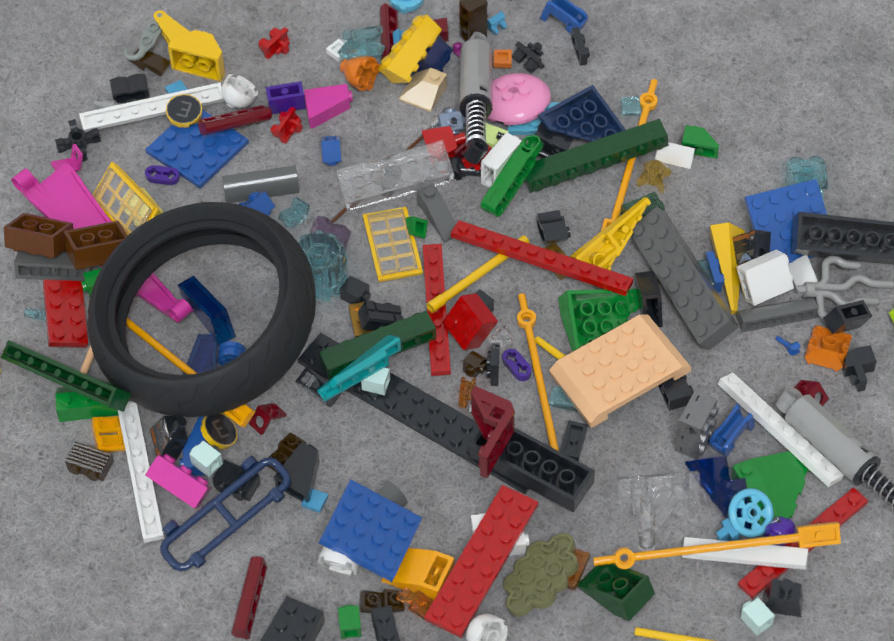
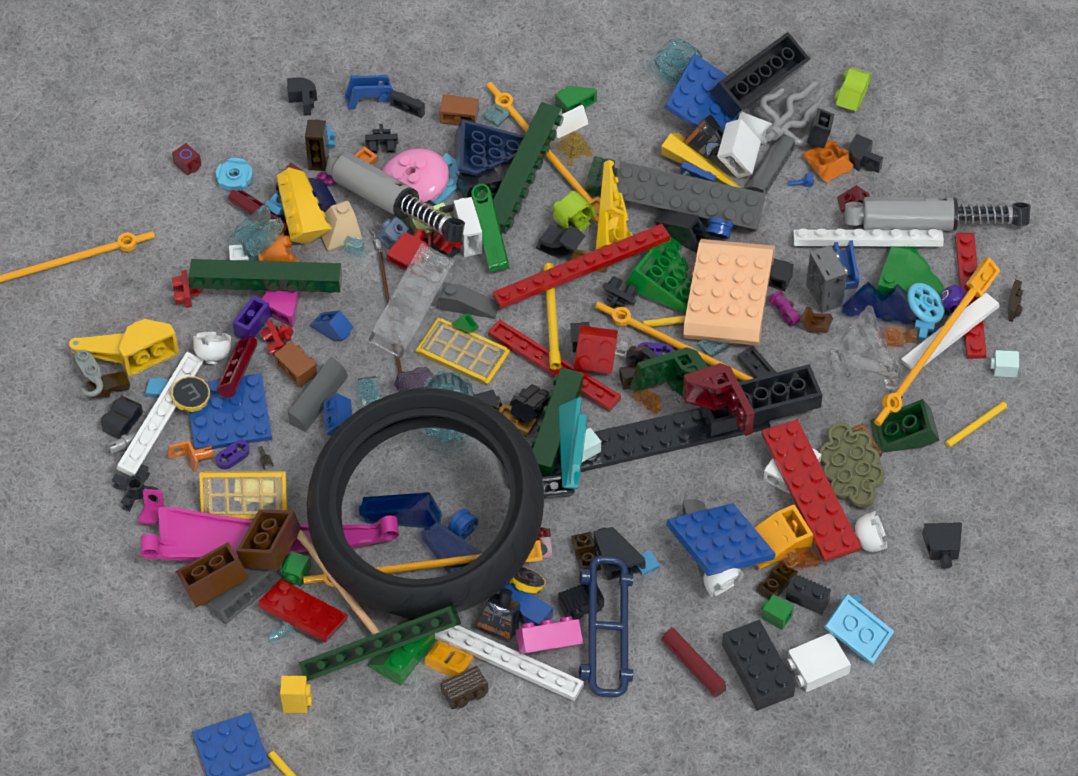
camera: 50 degrees left, 0 degrees up
(137, 152) = (193, 455): none -> orange bracket
(175, 196) = (265, 459): none -> clear smoke hand
(205, 458) = (551, 602): light aqua brick -> none
(273, 150) = (296, 364): none -> dark orange brick
(325, 76) = (265, 275): none -> dark green brick
(416, 110) = (354, 246): none -> clear light blue plate
(496, 378) = (667, 369): none -> dark green bracket
(542, 303) = (613, 288): none -> black hips
(585, 217) = (573, 211): none -> lime brick
(606, 80) = (456, 108): none -> dark orange brick
(650, 420) = (786, 308): none -> magenta connector
(657, 450) = (816, 321): none -> reddish brown bracket
(675, 320) = (719, 228): none -> blue wheel
(704, 518) = (896, 337): none -> clear orange plate
(784, 597) = (1008, 335): black torso -> none
(822, 582) = (1015, 299): none -> dark brown slope

